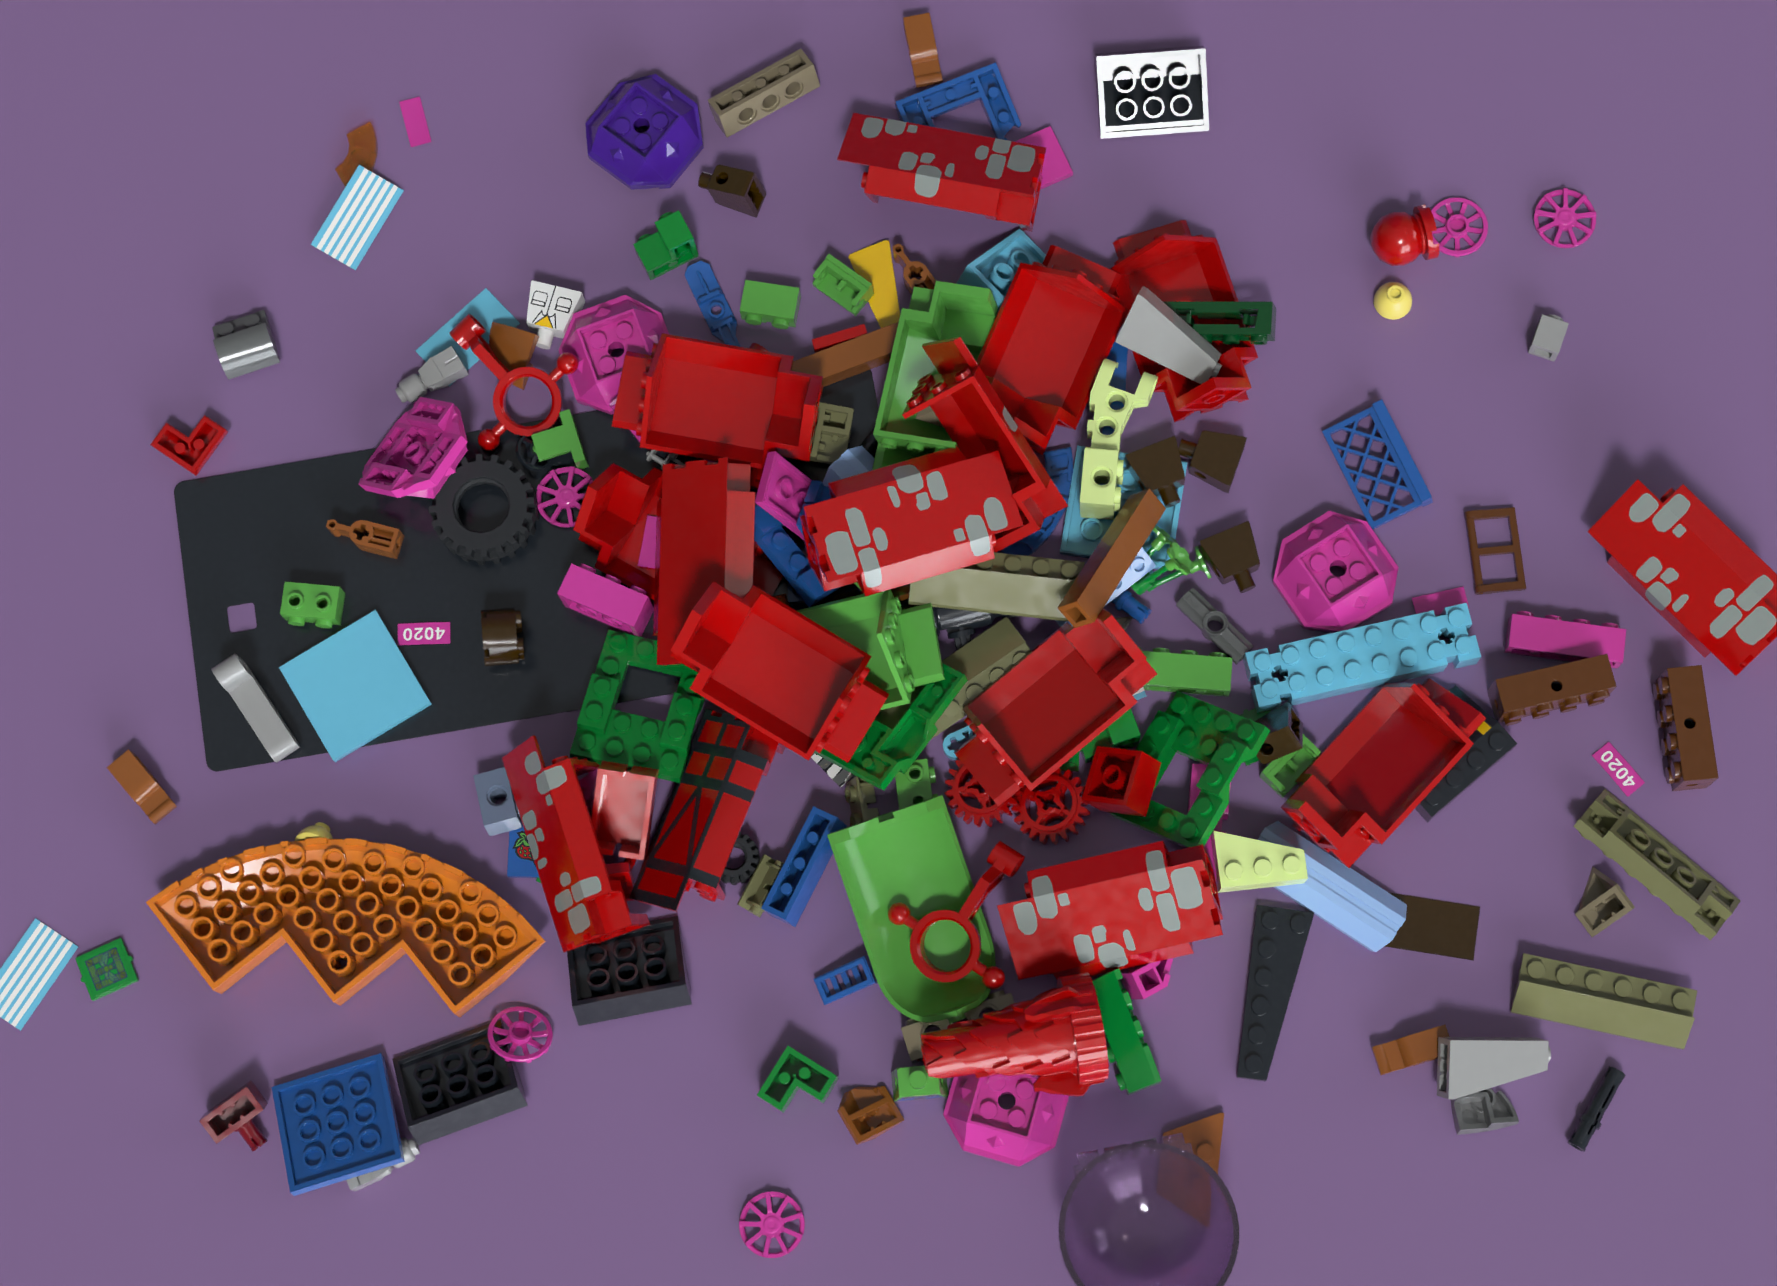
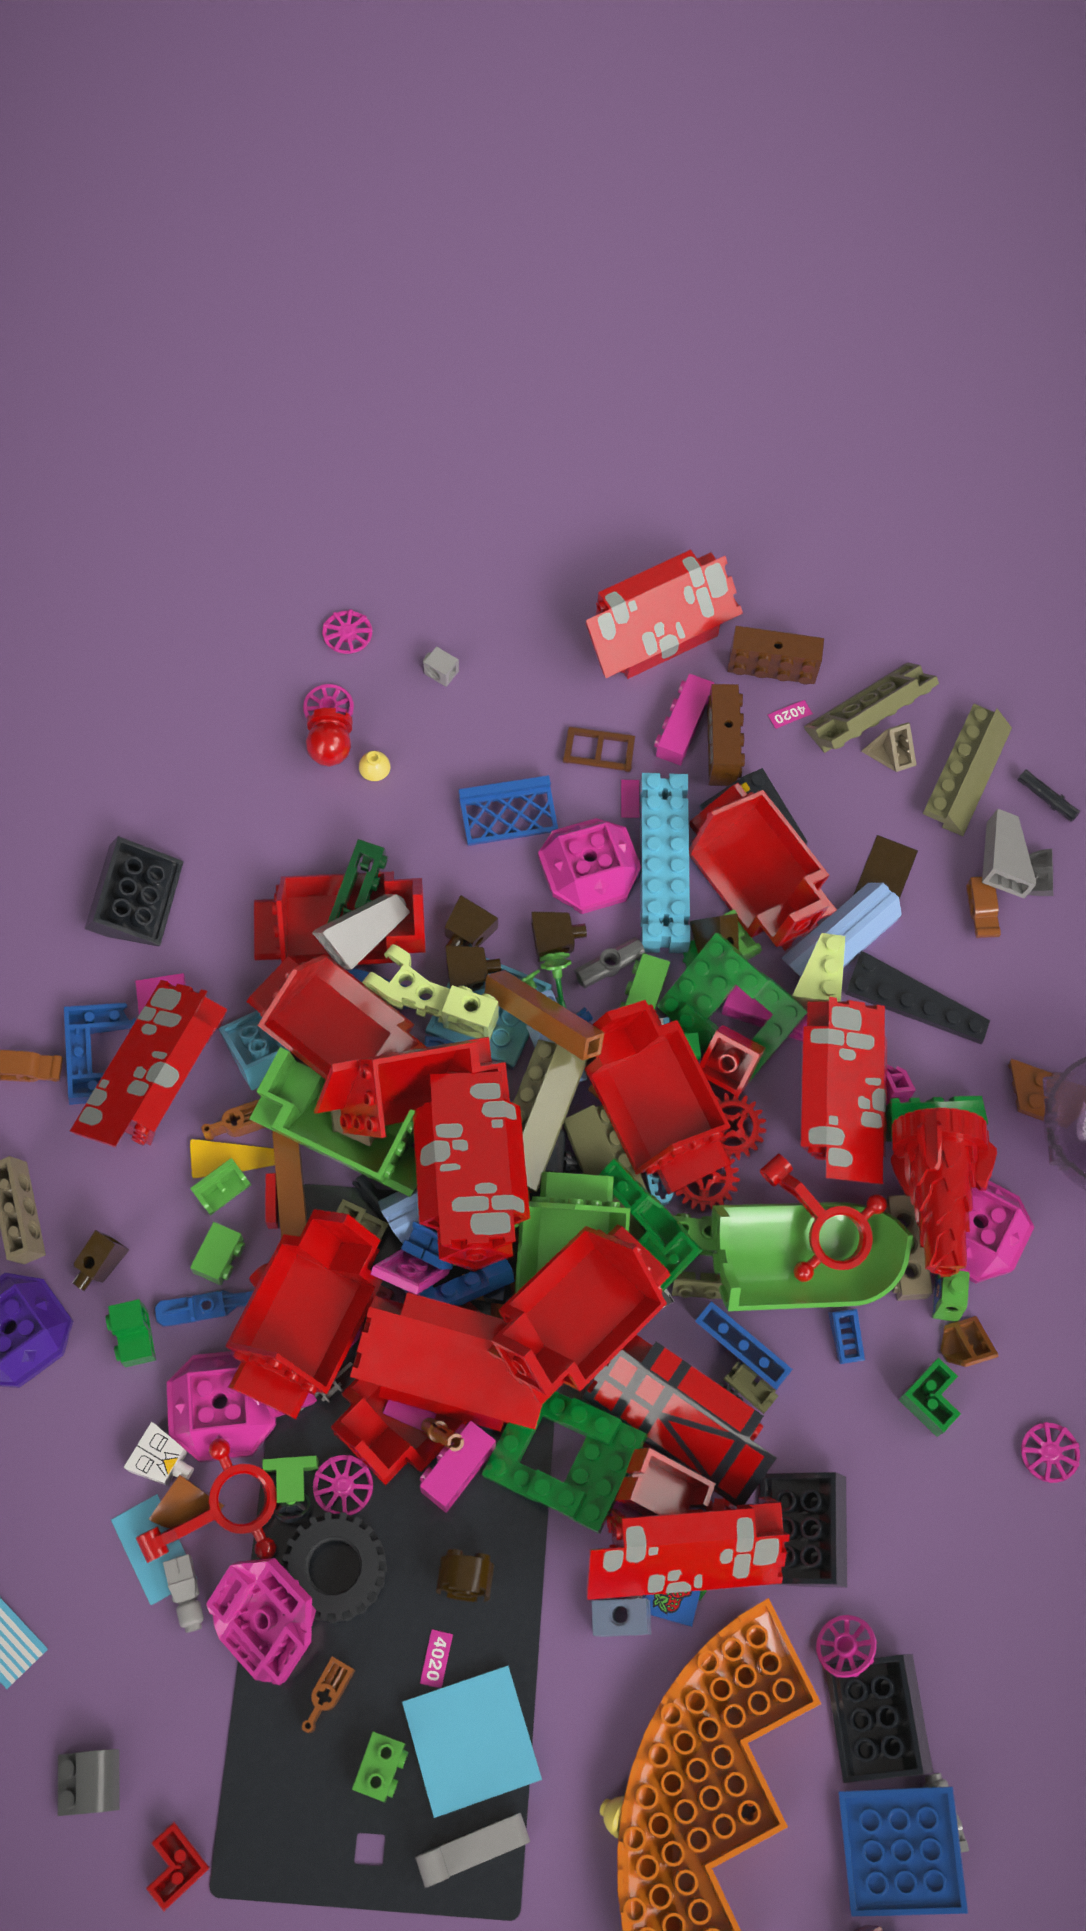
camera: 90 degrees left, 10 degrees down
(630, 572) = (442, 1434): none -> dark orange pin

